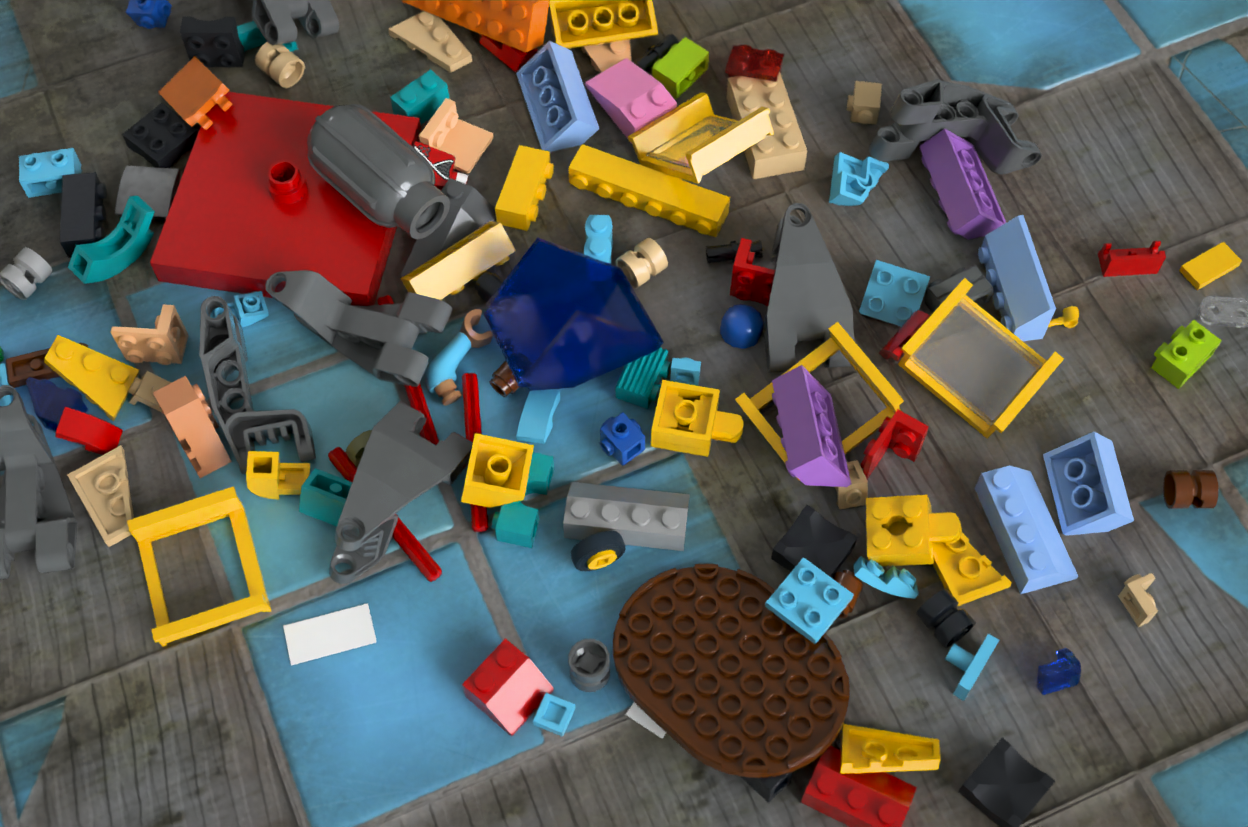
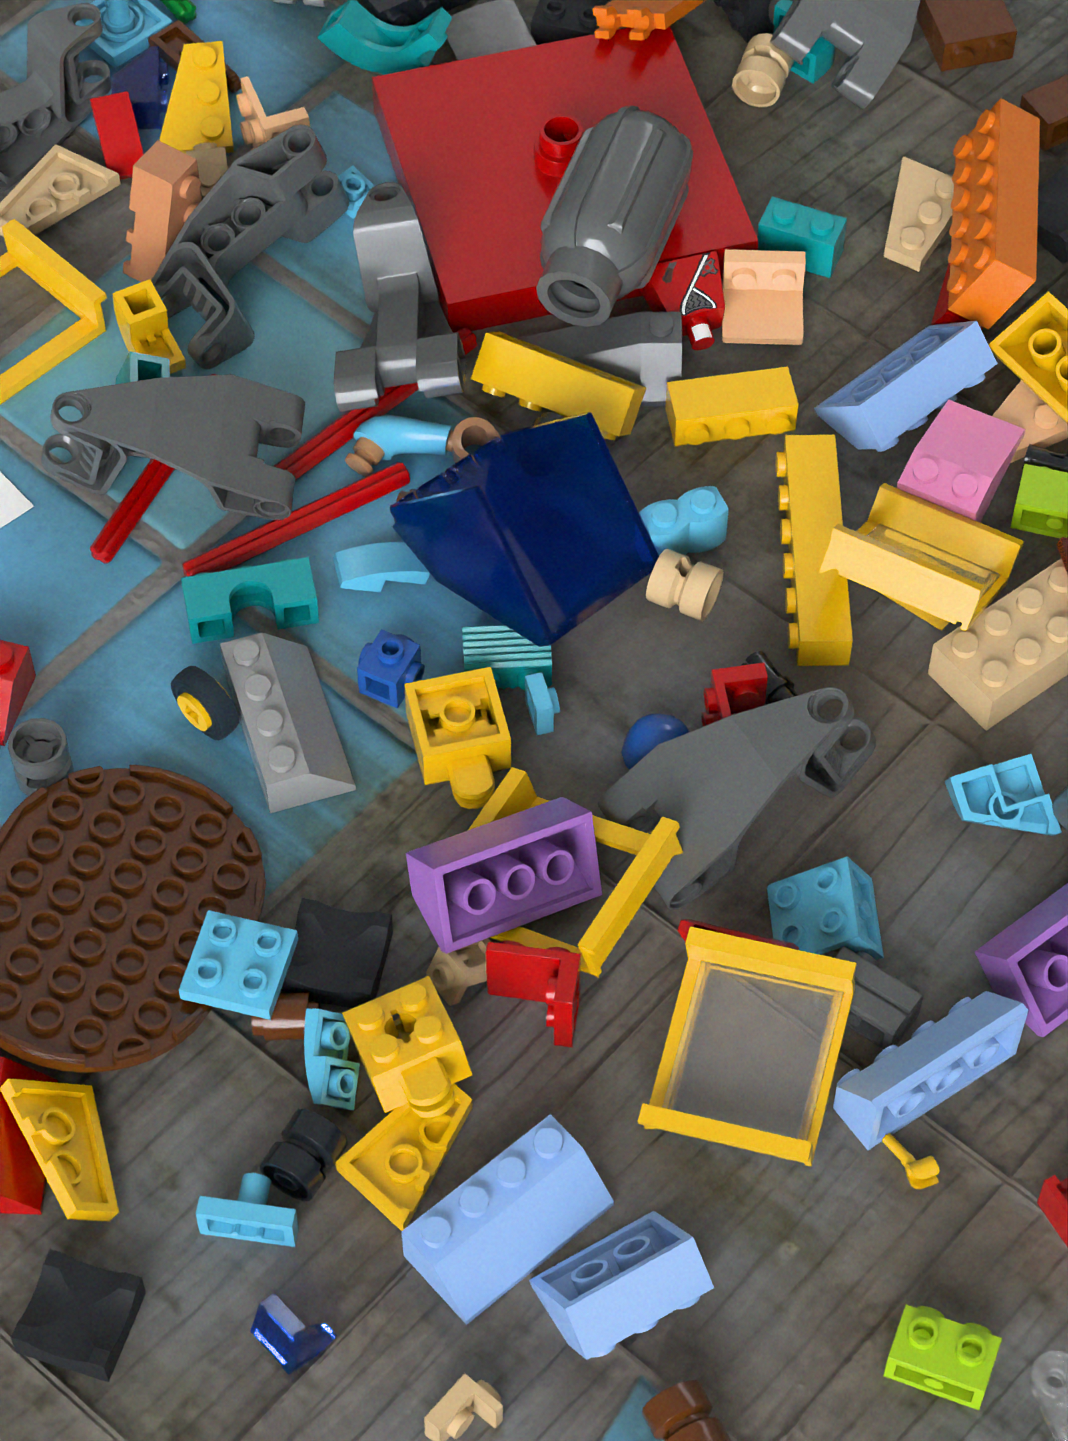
camera: 65 degrees right, 5 degrees down
(496, 471) = (254, 535): yellow slope -> none

